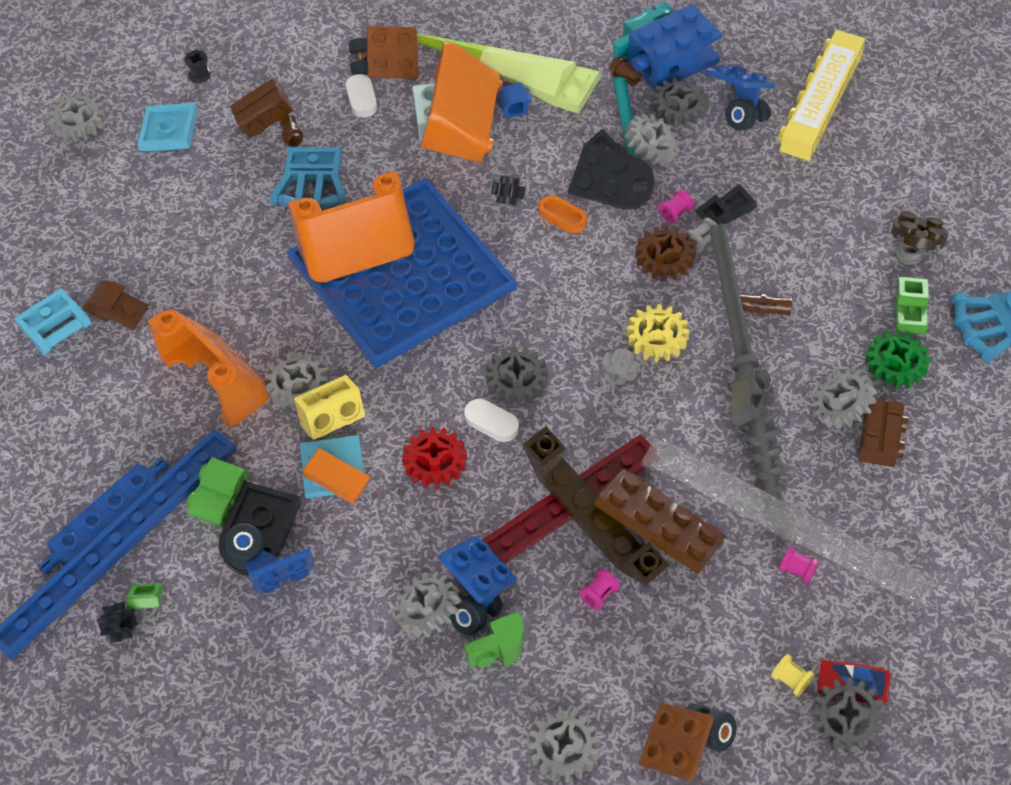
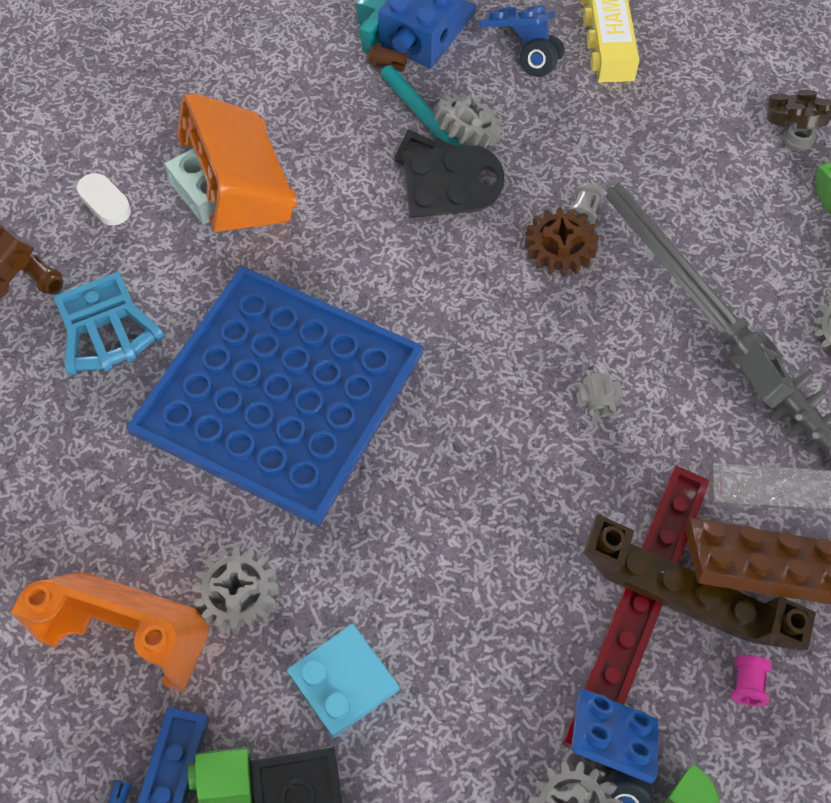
camera: 30 degrees left, 5 degrees up
(329, 407) = (300, 607): light yellow brick -> none
(336, 476) = (362, 695): orange tile -> none
(353, 233) = (207, 375): orange windscreen -> none
(386, 53) = (106, 137): dark orange plate -> none
(448, 460) = (476, 597): red gear -> none
(491, 420) = (494, 527): white tile -> none
(502, 376) = (488, 473): dark grey gear -> none
(508, 190) = (345, 241): black gear -> none
(514, 100) = (287, 135): blue plate -> none
(547, 78) = (304, 97): yellowish green plate -> none
(562, 214) = (419, 244): orange tile -> none
(657, 333) = (628, 345): light yellow gear -> none
(676, 206) = (536, 188): dark pink bush -> none
(680, 102) = (468, 68): dark grey gear -> none
(728, 207) = (588, 162): black slope -> none
(783, 305) = (714, 249): reddish brown pin -> none

